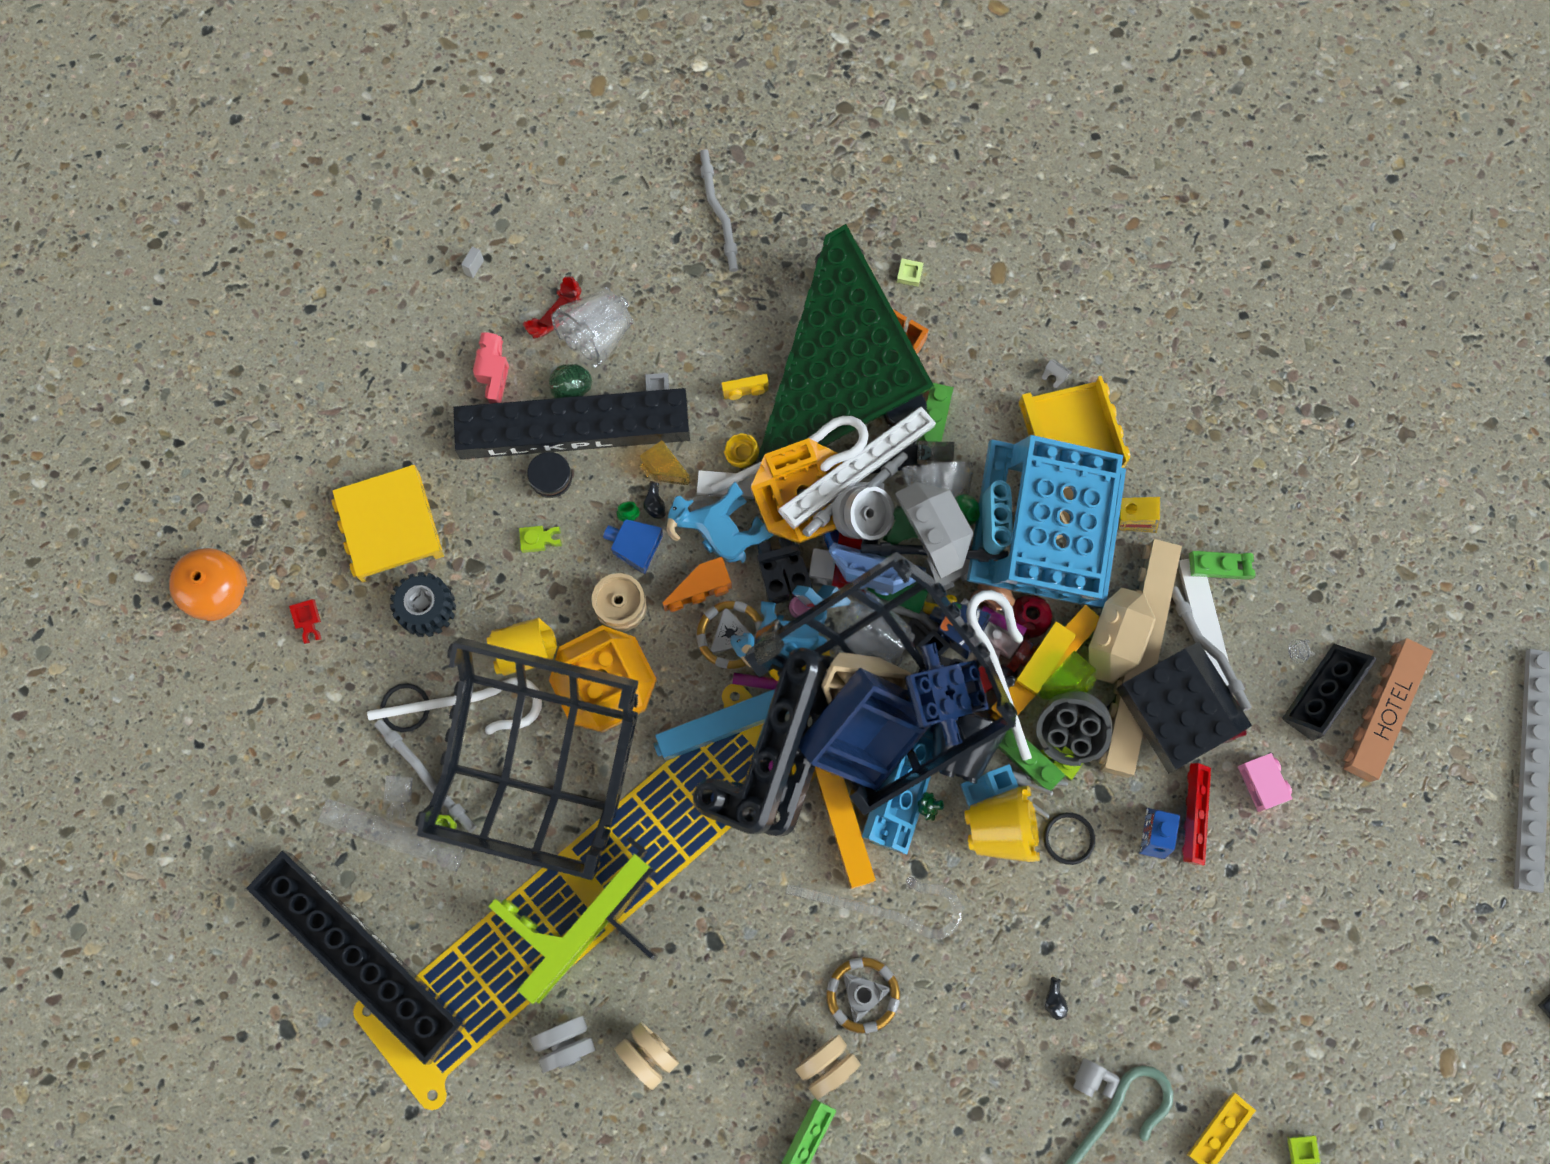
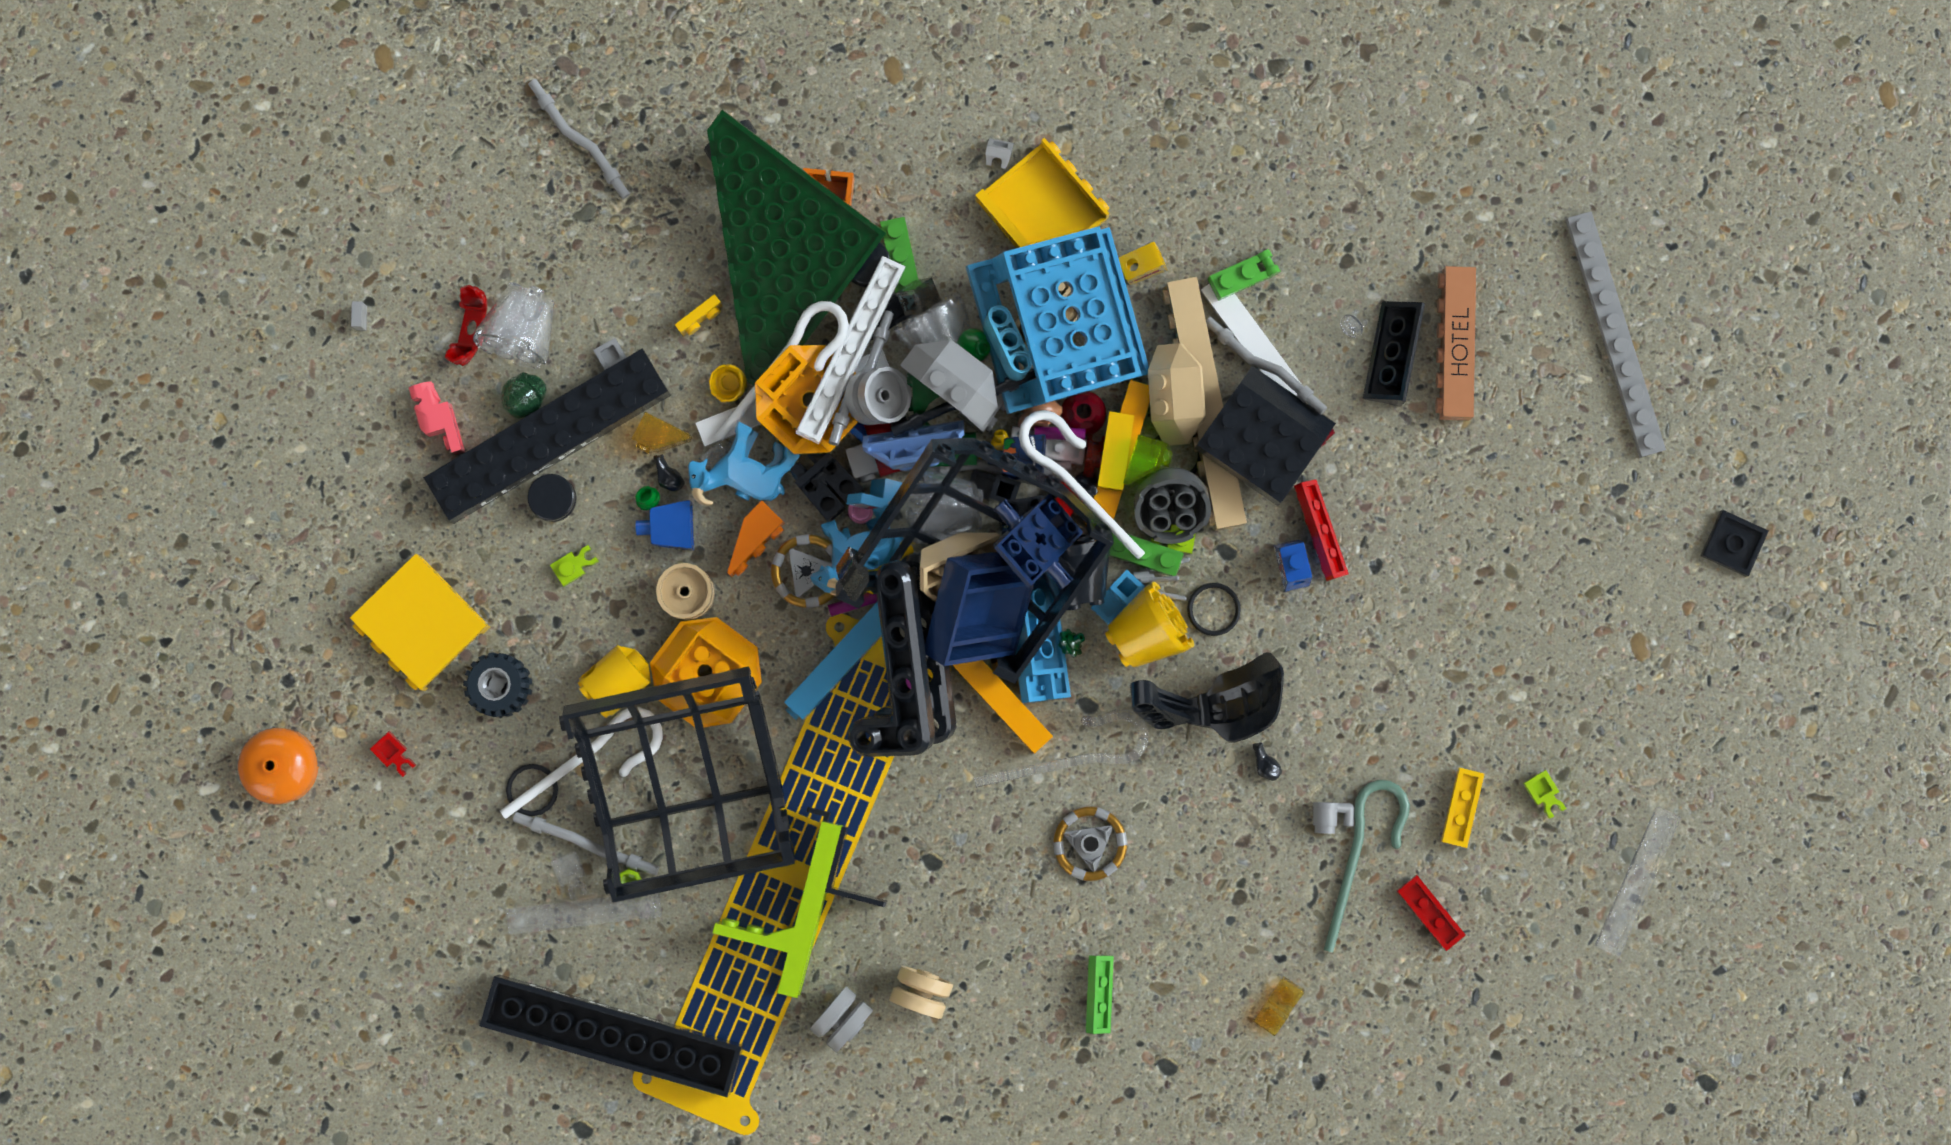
camera: 25 degrees left, 10 degrees up
(830, 1069) = (1090, 923): tan wheel -> none
(910, 272) = (804, 113): yellowish green tile -> none
(1051, 933) = (1235, 706): none -> black piece
(1265, 782) = (1372, 469): bright pink brick -> none

